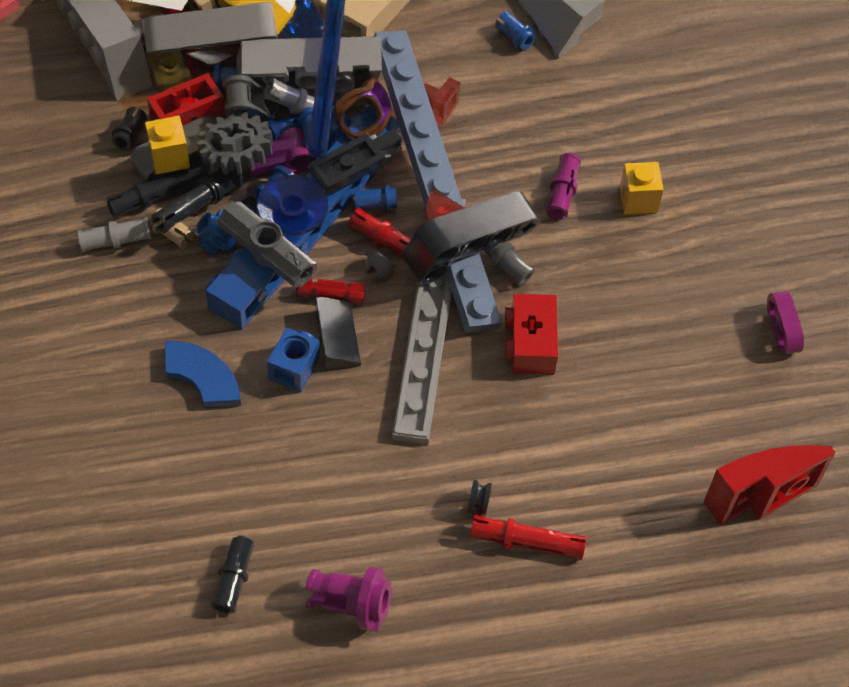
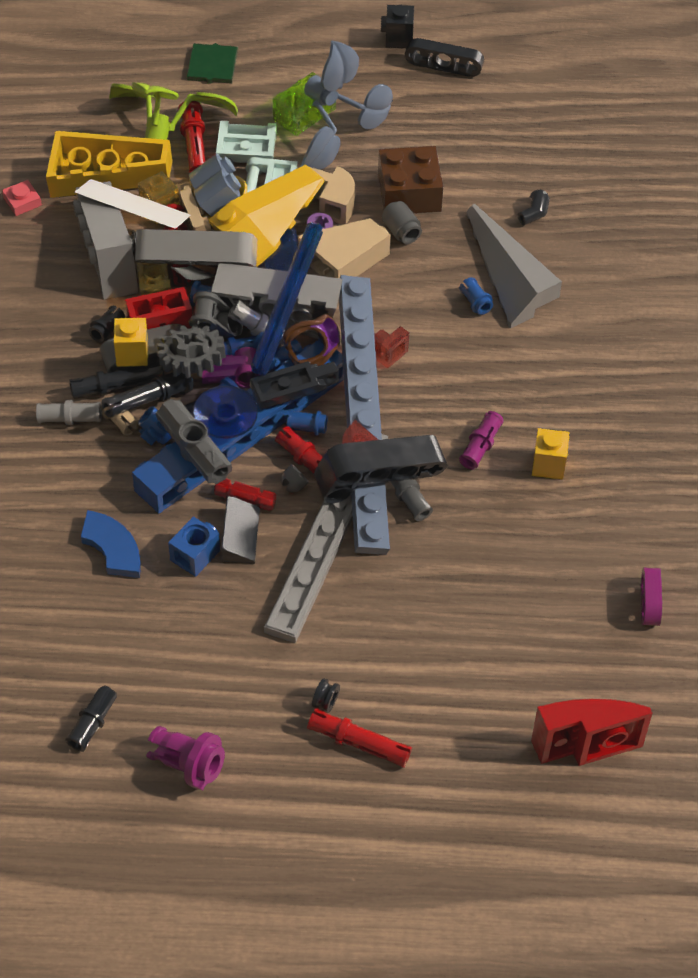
camera: 15 degrees right, 5 degrees down
(533, 334) = (414, 563): red brick -> none

